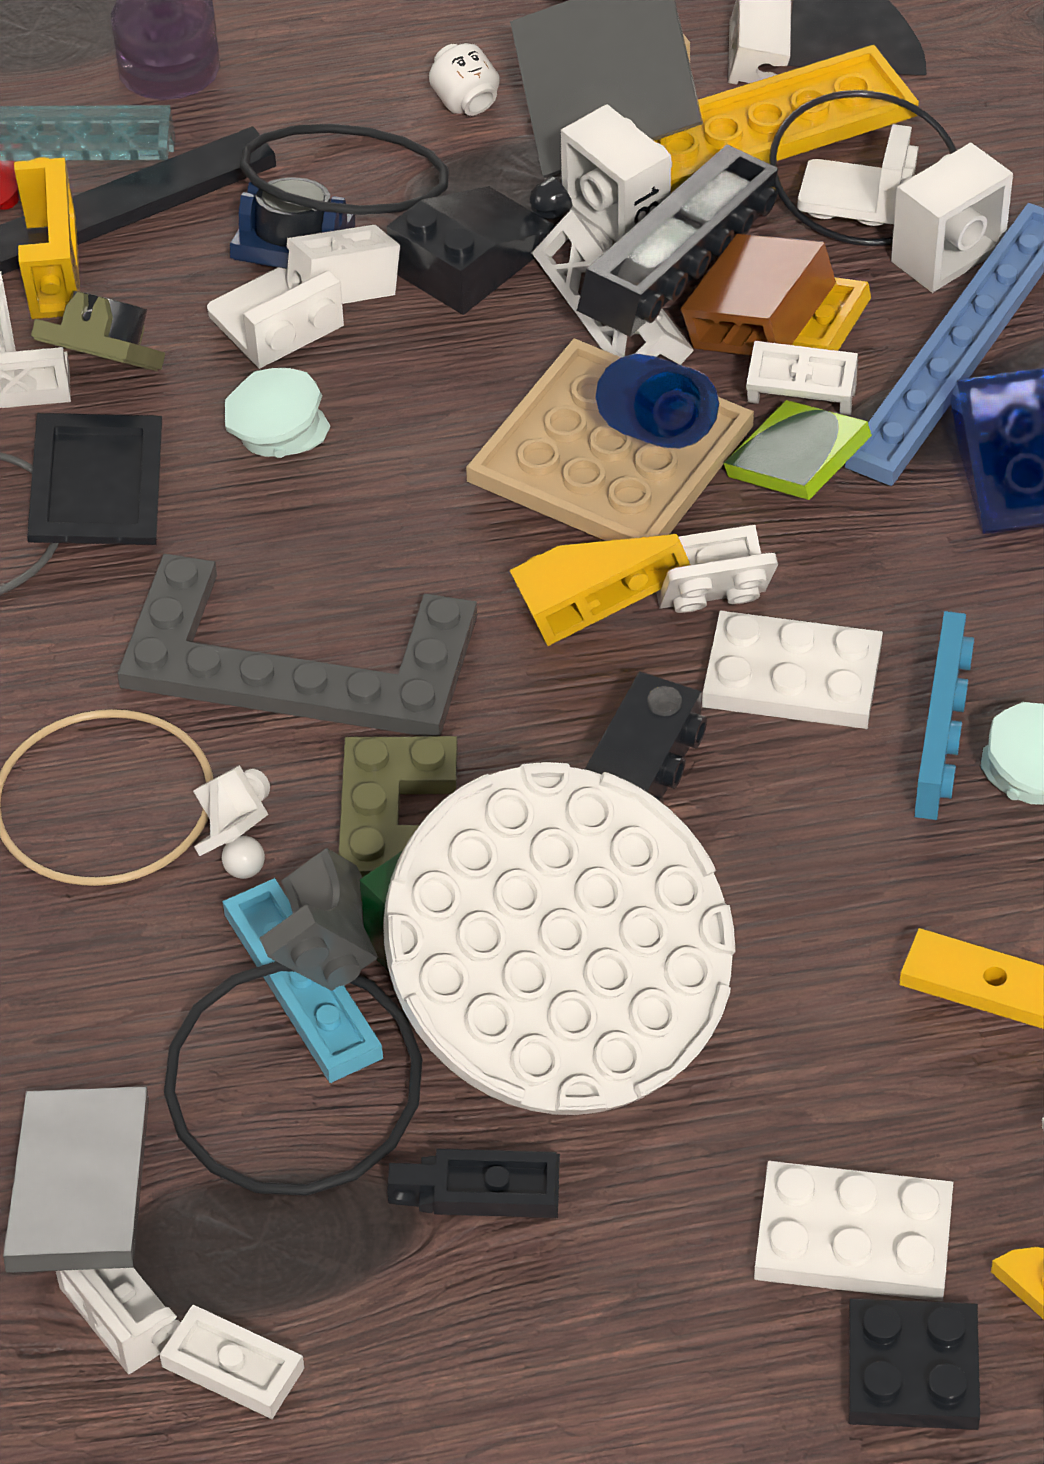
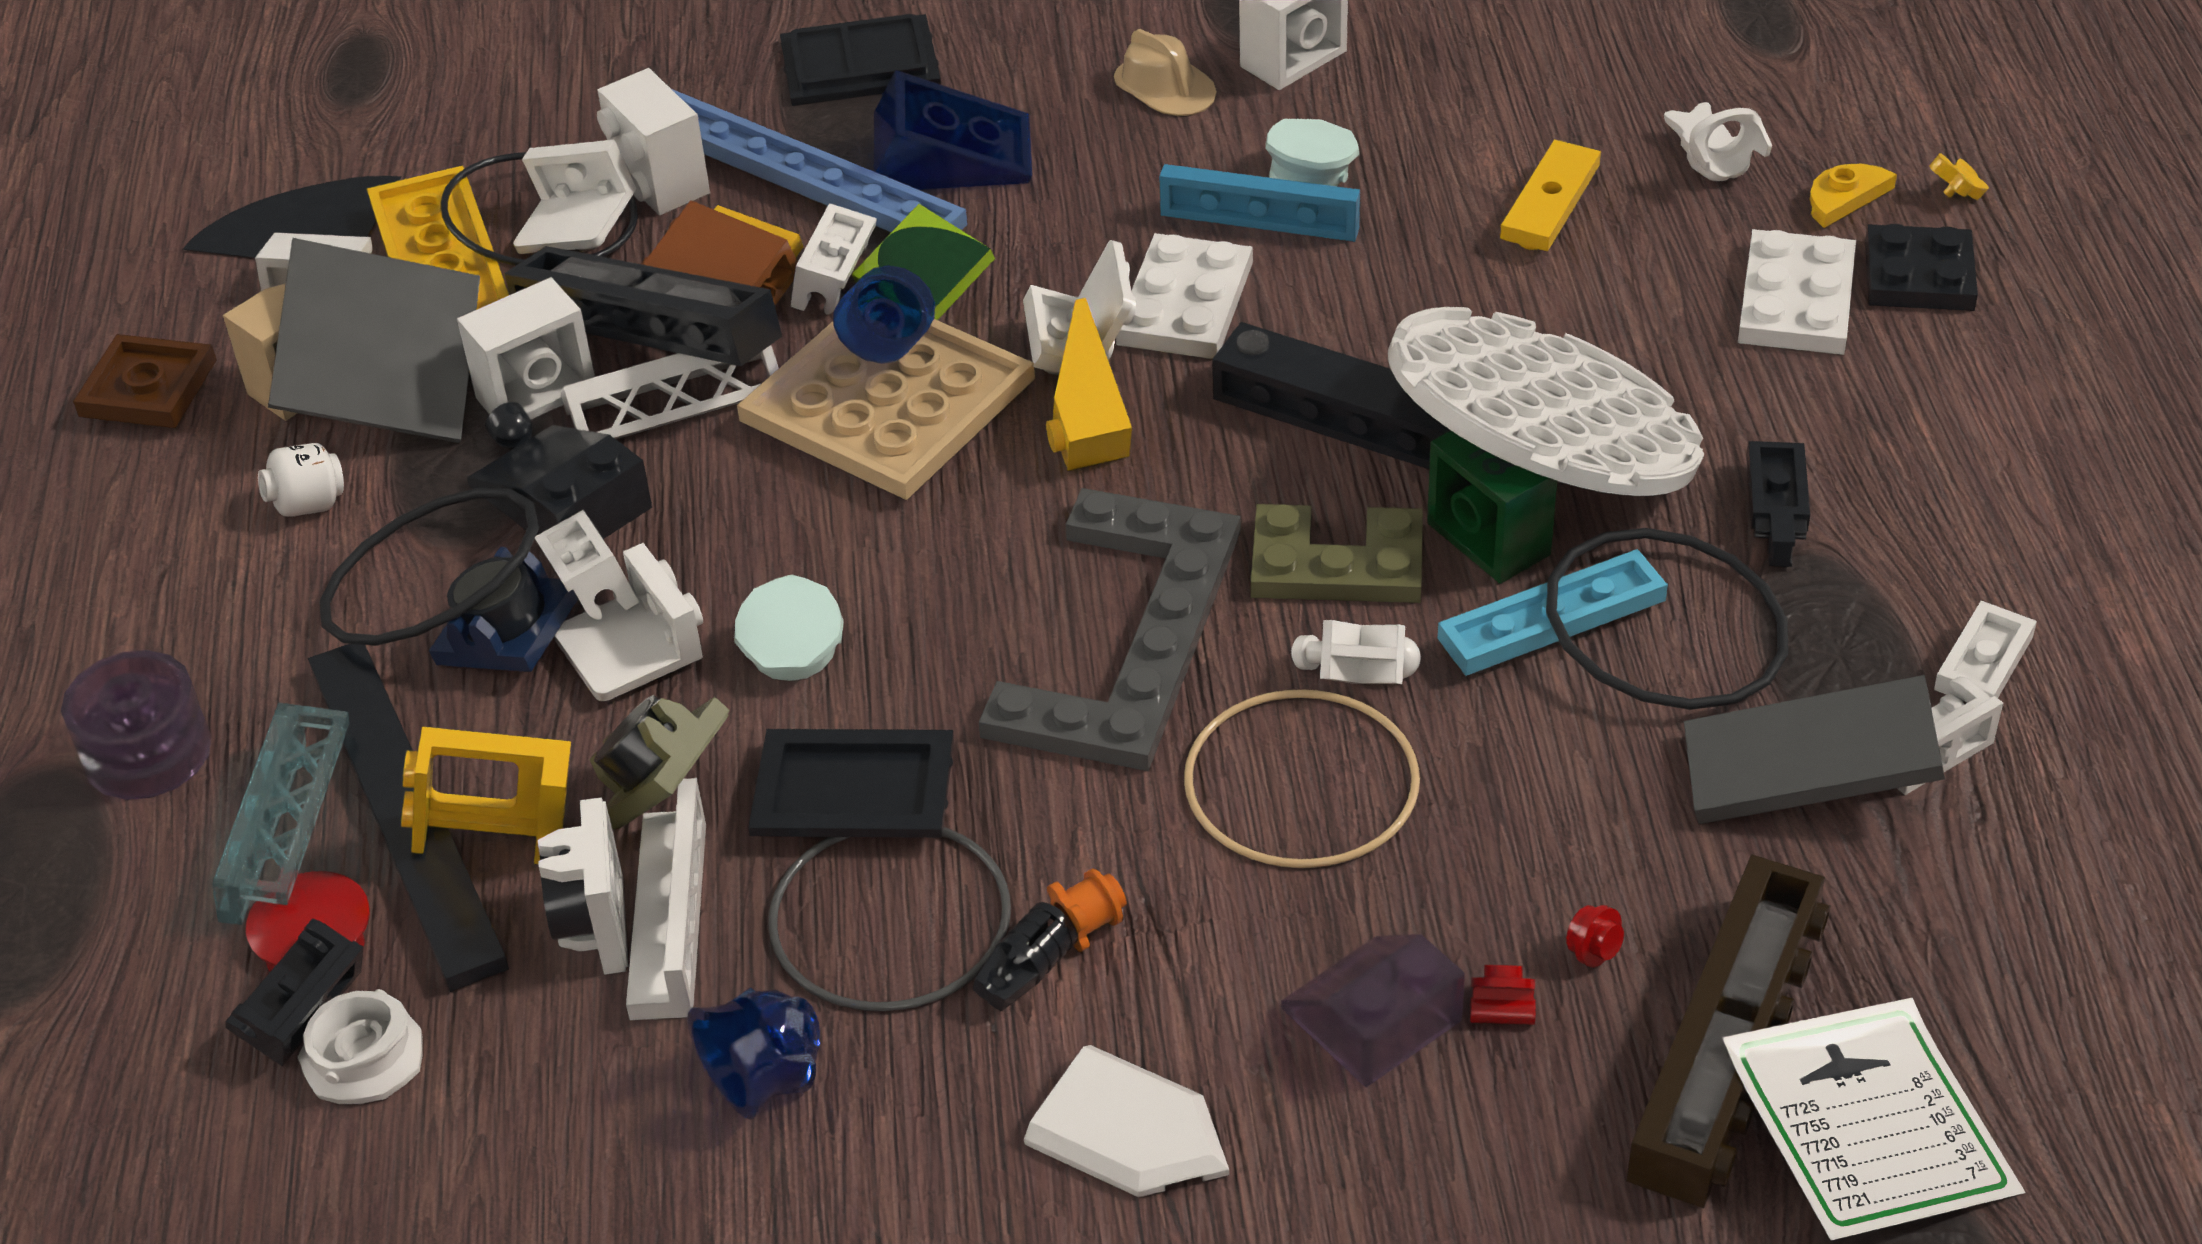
camera: 85 degrees left, 5 degrees down
(327, 930) = (1531, 554): dark grey arch -> none

